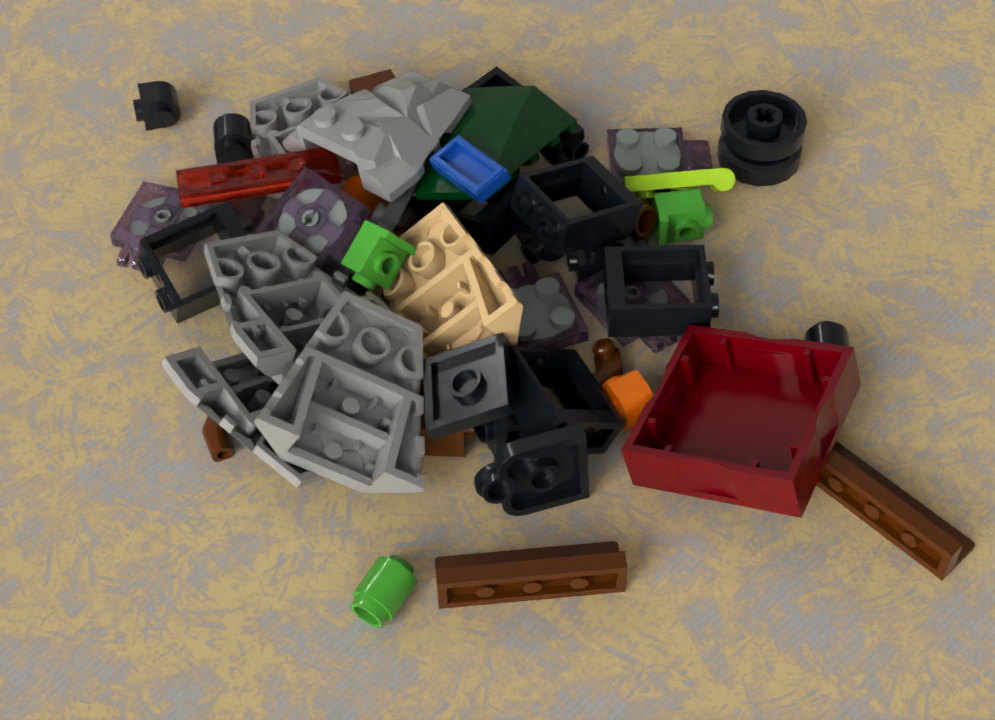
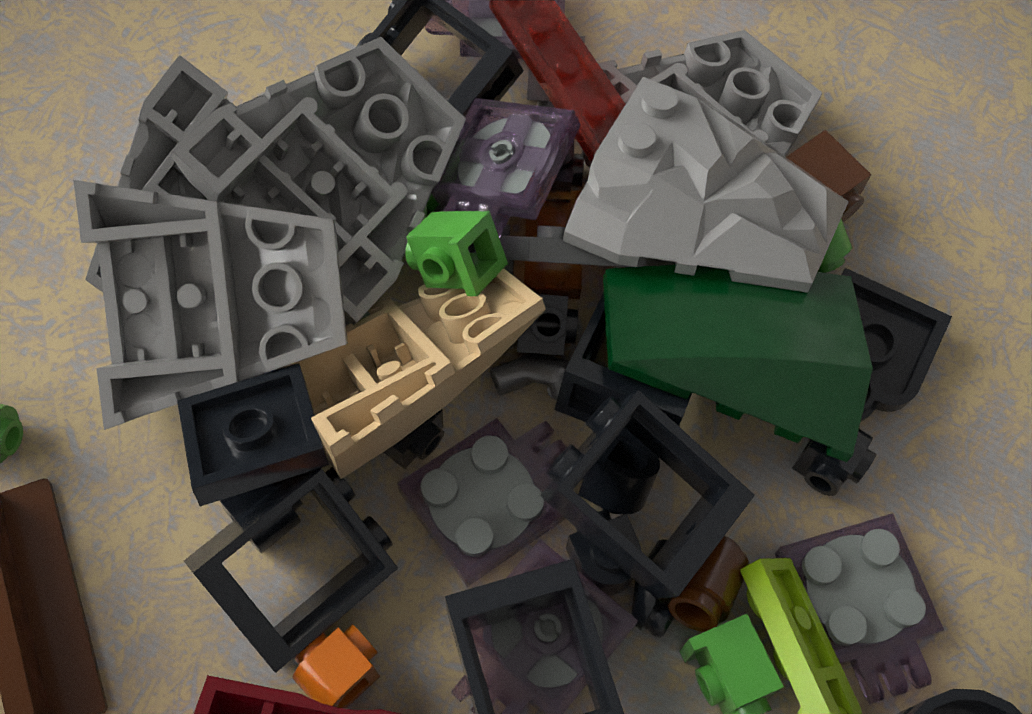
camera: 70 degrees right, 15 degrees up
(232, 138) = (670, 29): black plate -> none
(469, 169) = (647, 322): blue tile -> none
(537, 472) = (168, 584): black plate -> none
(606, 360) = (407, 627): reddish brown arm -> none

